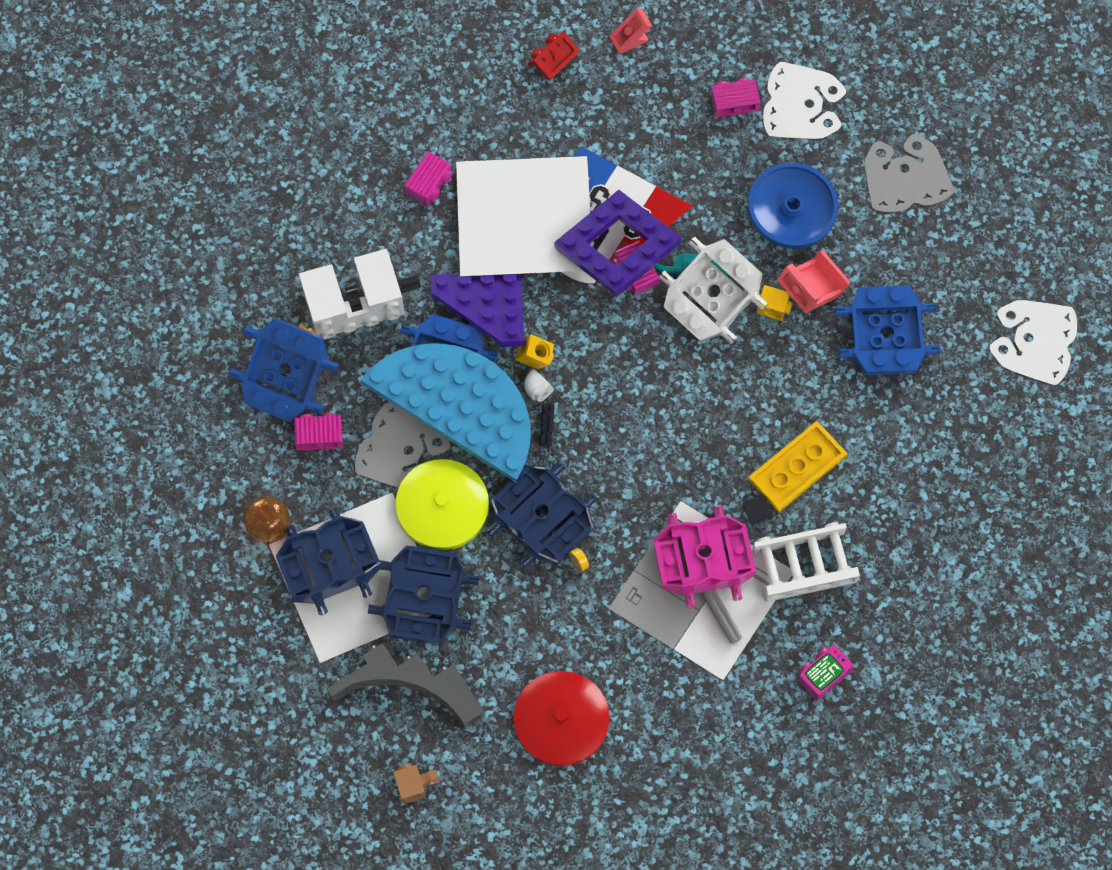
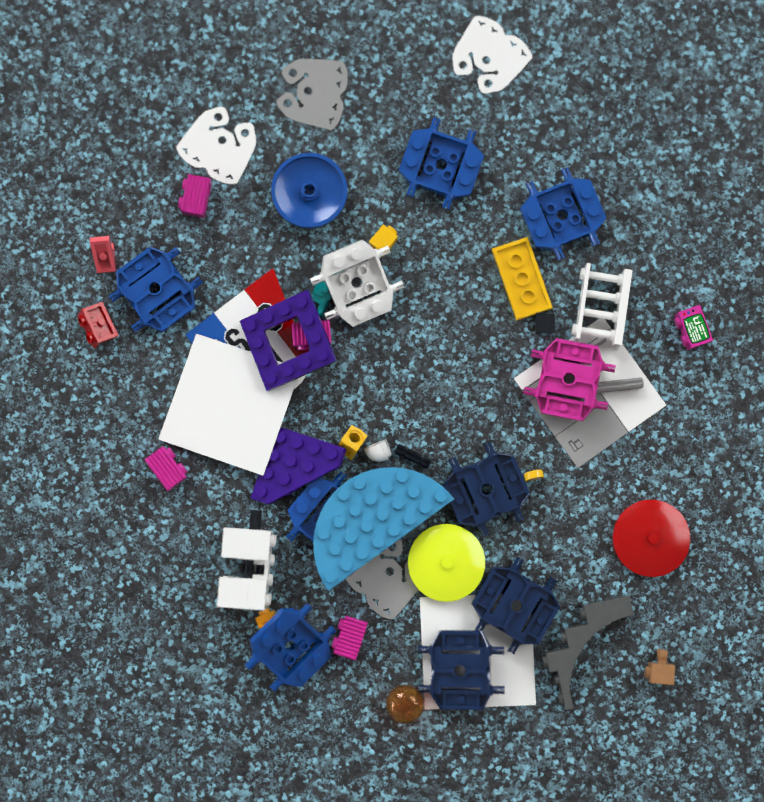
camera: 70 degrees left, 15 degrees up
(639, 89) = (170, 283): none -> blue piece
(814, 282) = (380, 202): coral panel -> none
(902, 467) = (560, 199): none -> blue piece

